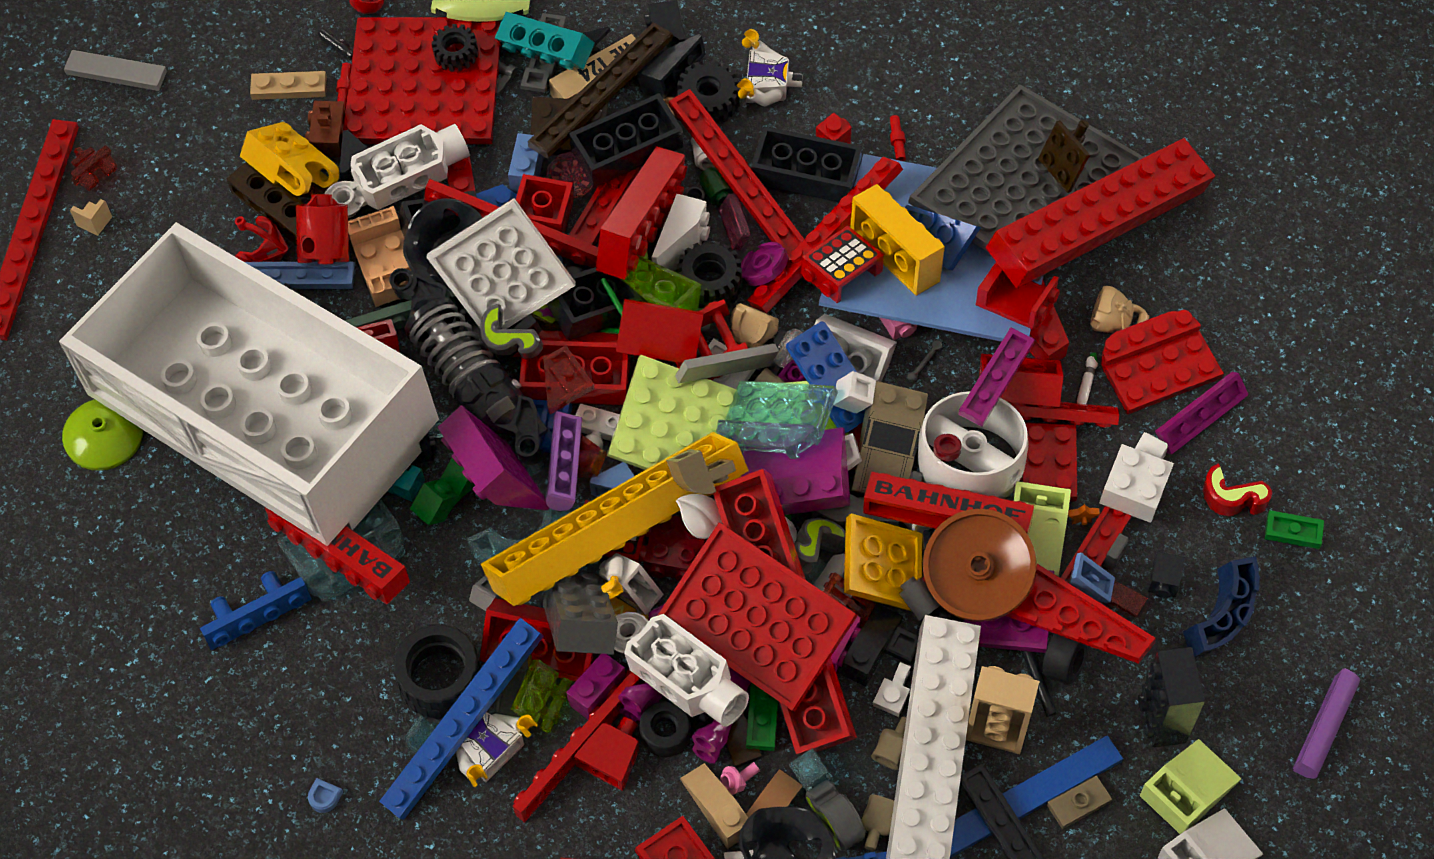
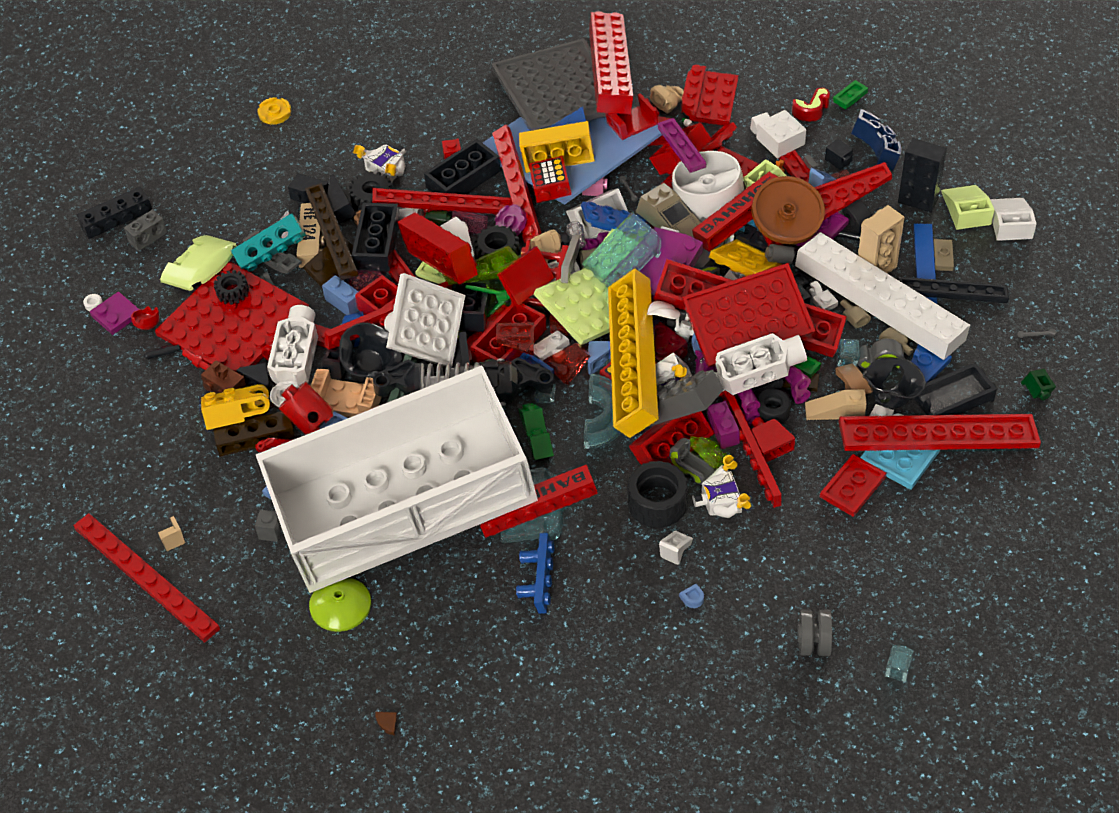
camera: 55 degrees left, 10 degrees down
(84, 172) = (130, 518): clear red hips -> none
(115, 70) = (66, 475): light grey tile -> none
(288, 85) = (168, 389): tan plate -> none
(378, 732) = (673, 546): none -> white slope
(418, 733) = (690, 527): clear light blue slope -> none
(461, 719) = (702, 493): blue plate -> none
(482, 594) = (618, 452): light grey slope -> none
(489, 462) = (547, 389): magenta slope -> none
(508, 340) = (468, 350): dark grey animal -> none
(563, 461) = (570, 363): medium lavender brick -> none
(694, 475) = (643, 289): dark tan brick -> none
(737, 780) = (825, 389): bright pink plate -> none
(855, 392) = (639, 207): white panel -> none
(897, 138) = (476, 130): red bar -> none
(947, 447) = (708, 185): dark red tile -> none
(1064, 154) = (564, 57): dark brown plate -> none
(1202, 412) = (754, 91): magenta plate -> none
(1326, 724) = (968, 138): medium lavender brick -> none

